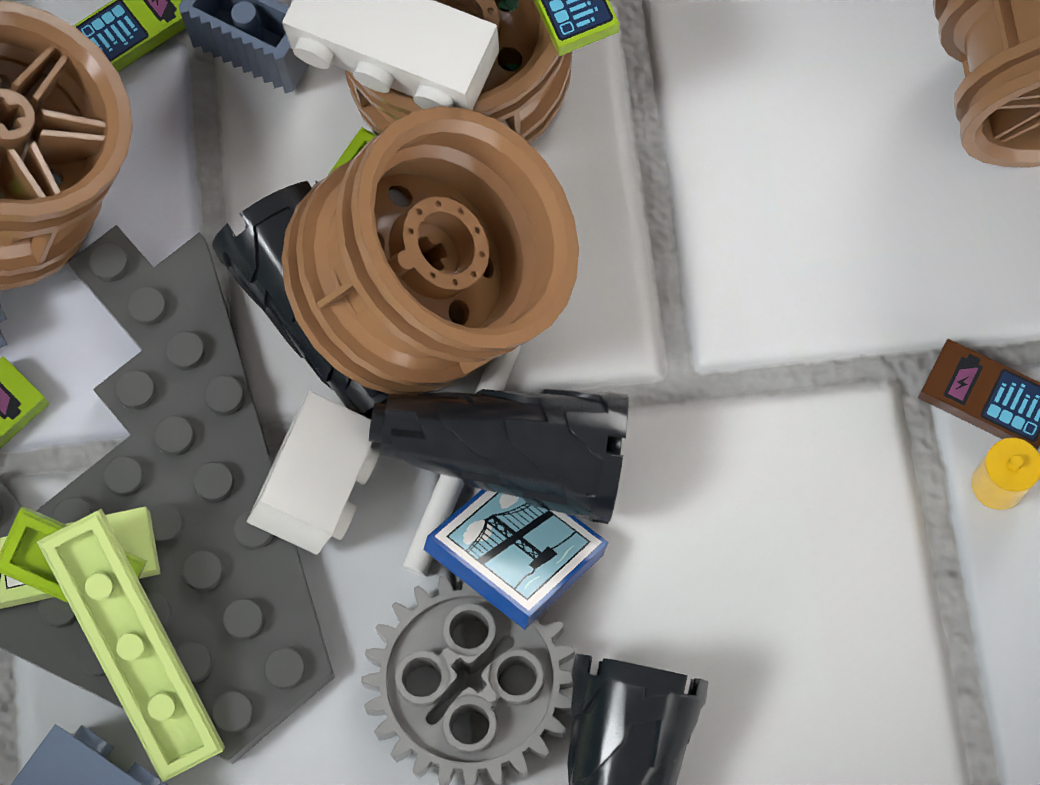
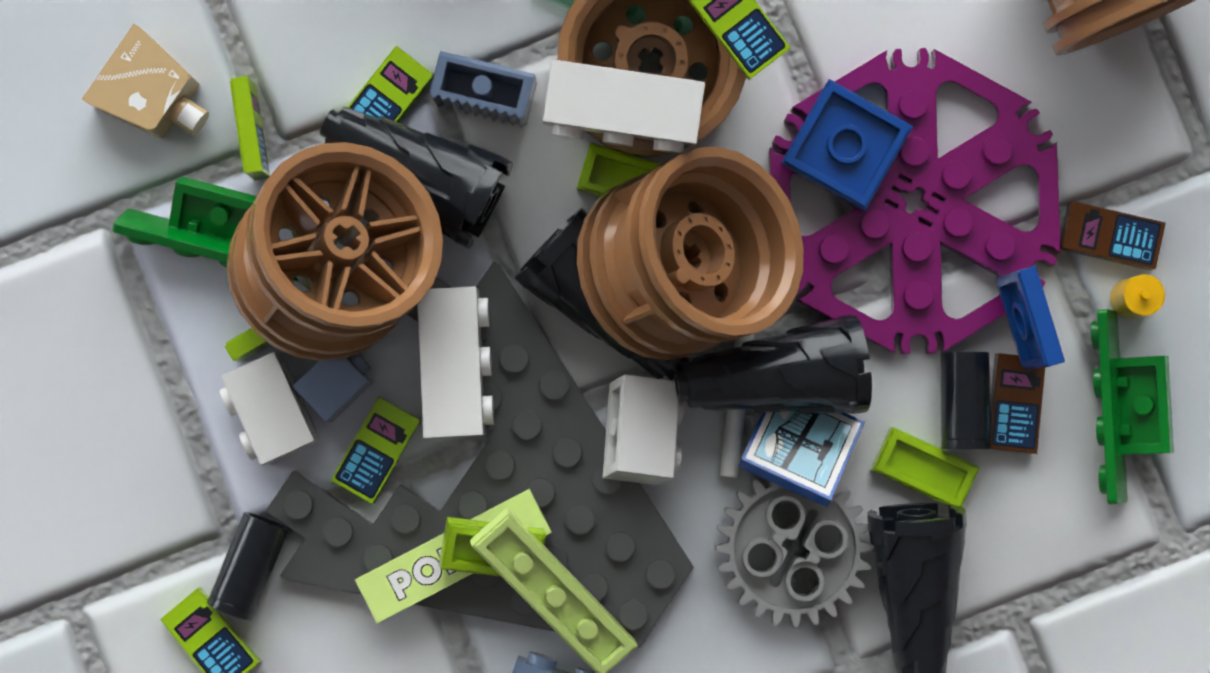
camera: 20 degrees left, 15 degrees up
(101, 326) = (454, 362): none -> white brick
(179, 121) = (456, 176): none -> black cone
(673, 197) = (846, 145): none -> blue tile
(673, 626) = (924, 468): none -> lime tile
(736, 336) = (957, 223): none -> magenta plate
(747, 549) = (965, 400): none -> black pin
(815, 575) = (1015, 405): none -> tile
(852, 450) = (1030, 319): none -> blue tile
(969, 613) = (1133, 406): none -> green bracket

